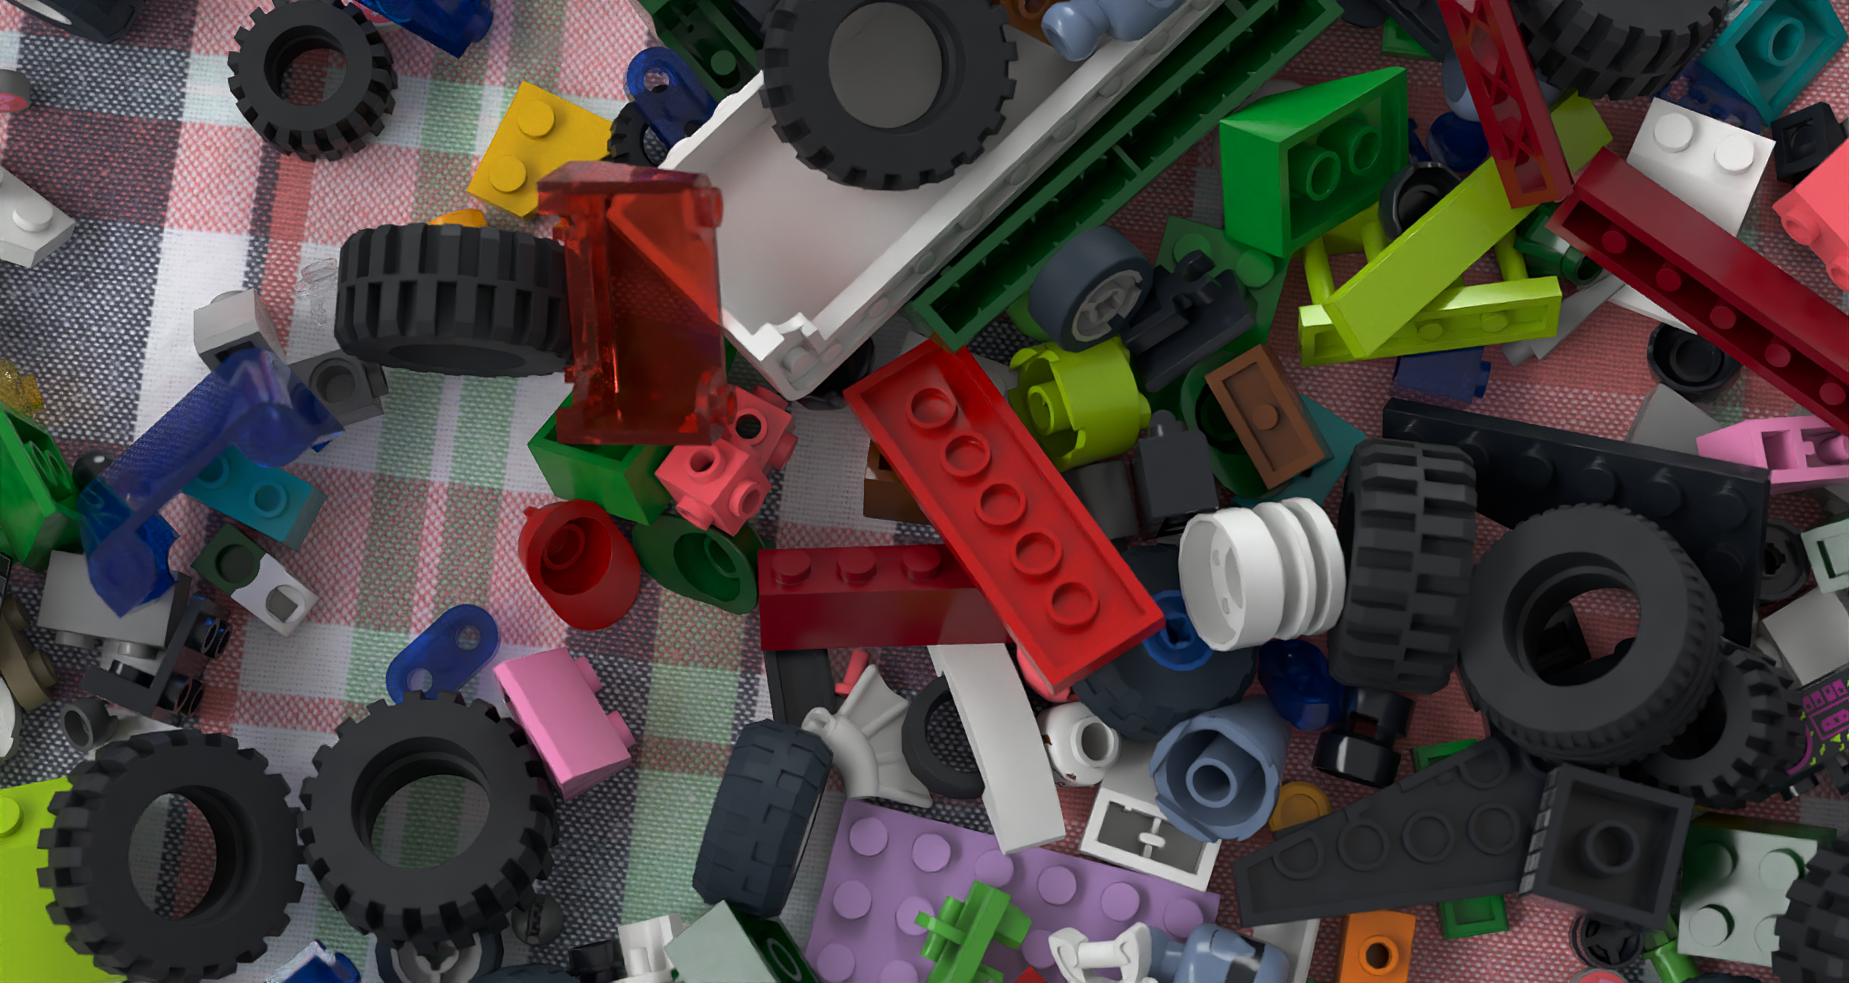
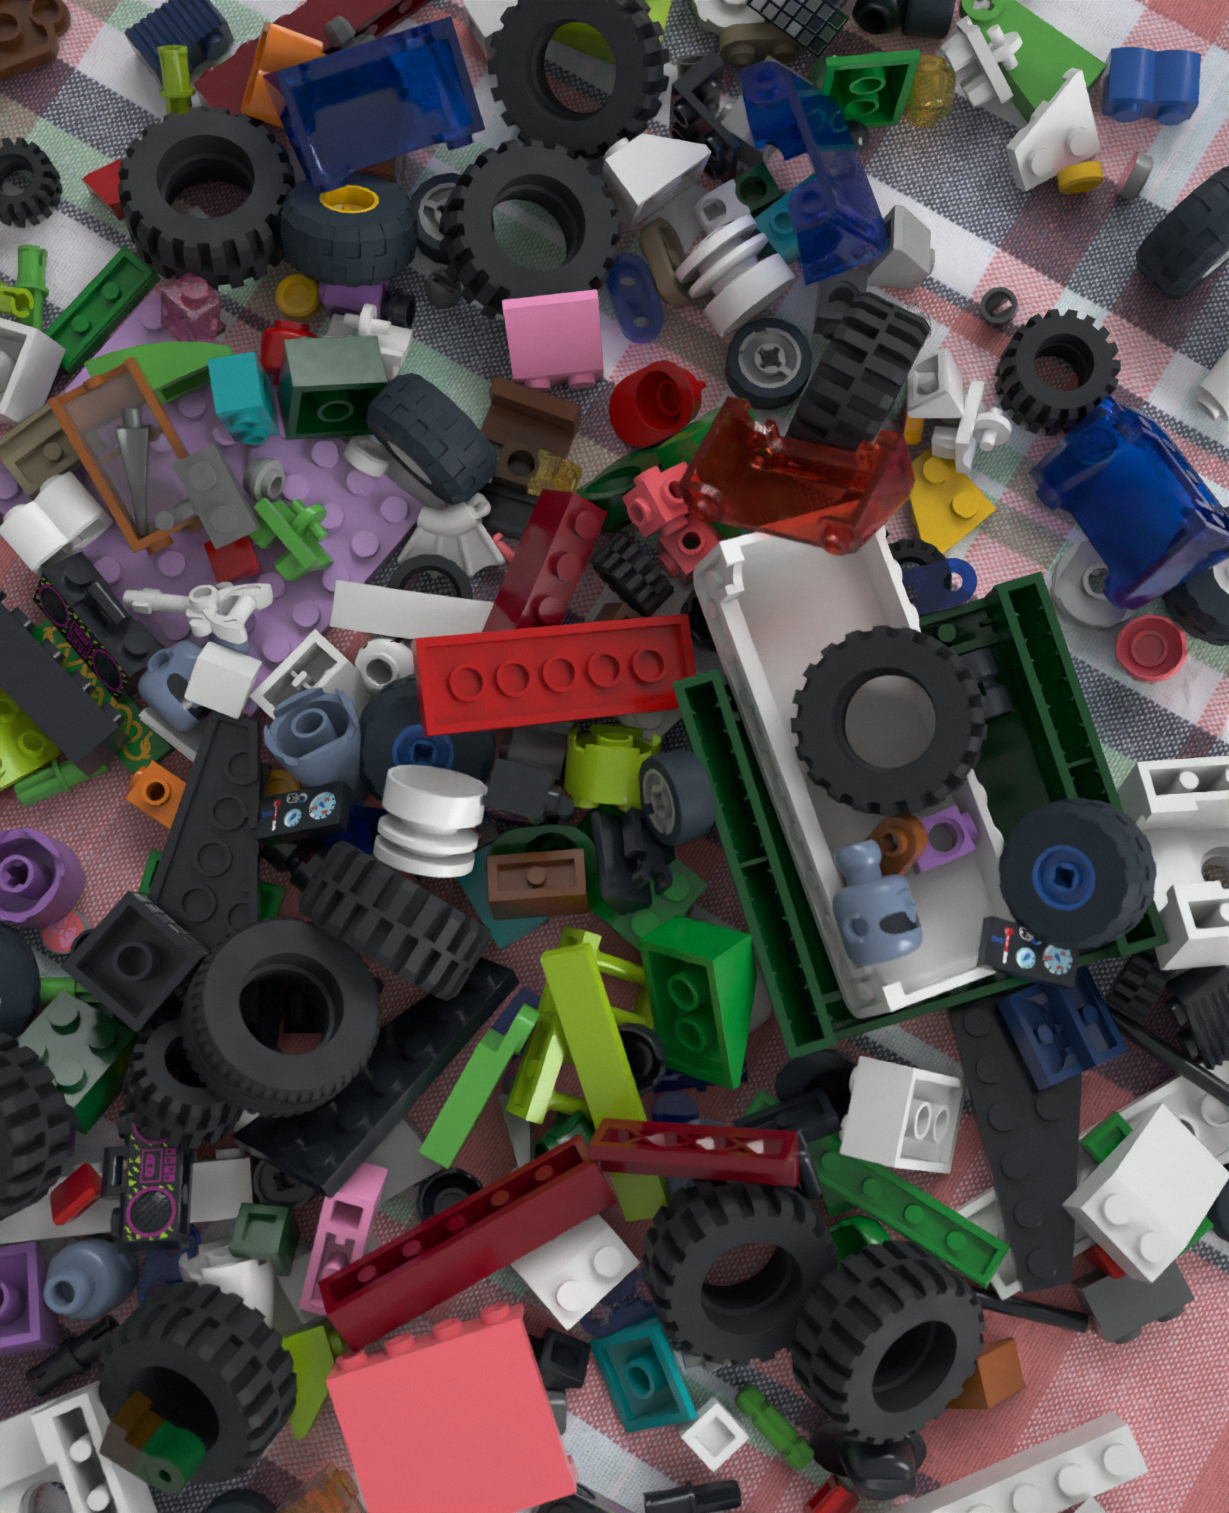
camera: 115 degrees right, 0 degrees up
(30, 157) = (1080, 177): none -> yellow tile
(260, 176) = (996, 298): none -> dark grey hinge
(279, 705) = (650, 174): none -> white slope
(361, 539) = (734, 274): none -> white wheel
(376, 635) = (665, 254): none -> dark tan plate
(411, 168) = (975, 426): none -> white hips
(411, 198) = (935, 387): none -> white slope
(472, 475) = (774, 385): none -> wheel
(672, 718) = (530, 418): none -> reddish brown panel
(736, 674) = (534, 469): none -> leg
(813, 906) = (367, 455): none -> white tile
(821, 487) = (632, 575): none -> black tyre
(1202, 926) = (222, 679): none -> white panel
(1322, 744) = (304, 814): none -> black tile
(1548, 380) = (476, 1088): none -> bright green piece

